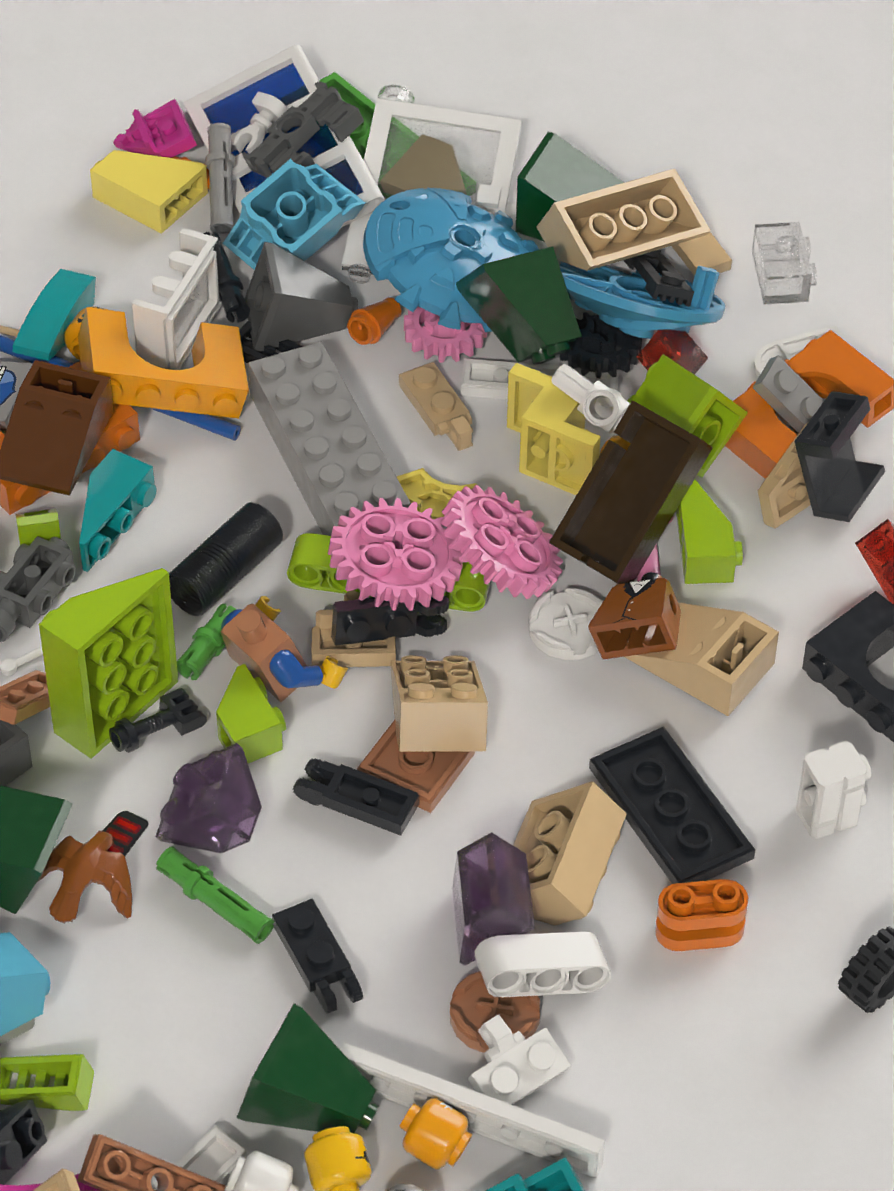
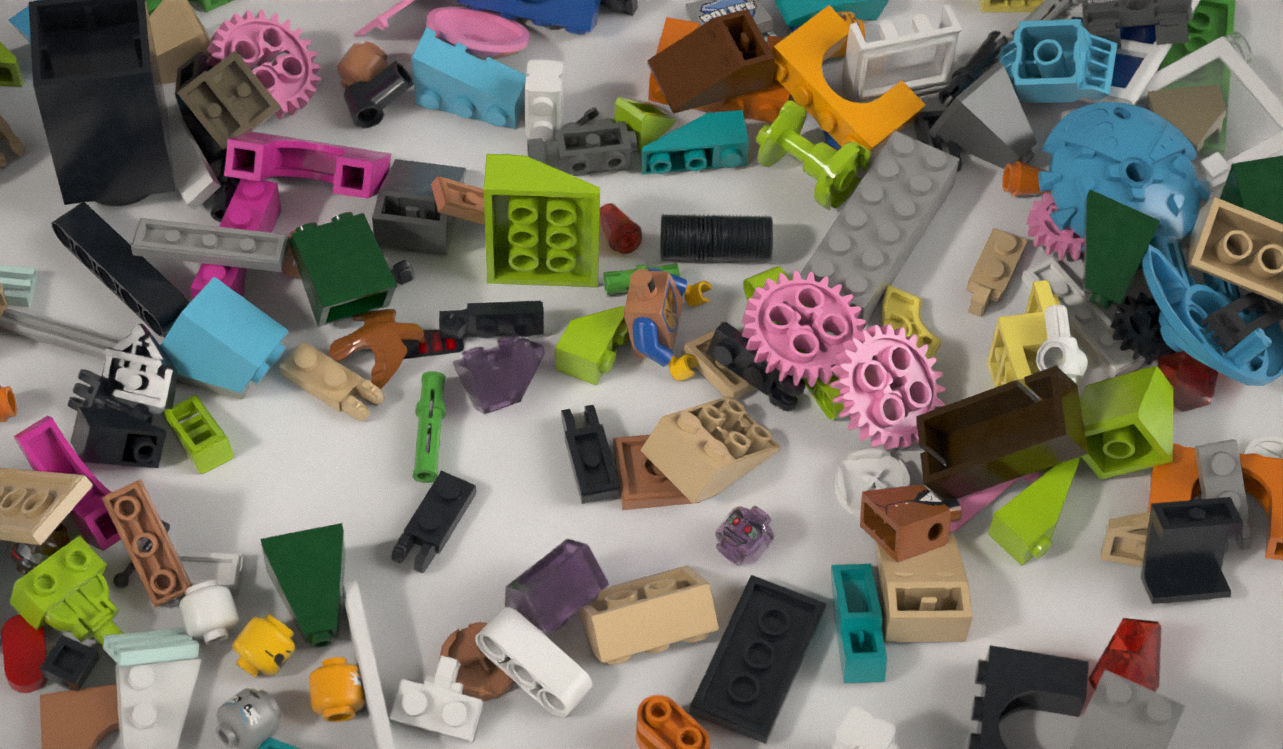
camera: 50 degrees right, 5 degrees up
(91, 940) = (330, 381): none -> tan hinge
(148, 773) = (493, 320): none -> black hinge
(175, 710) = (567, 304): black hinge -> none
(227, 433) = (831, 168): none -> lime piece
(547, 738) = (744, 535): none -> clear purple head
(699, 719) = (858, 623): none -> teal slope

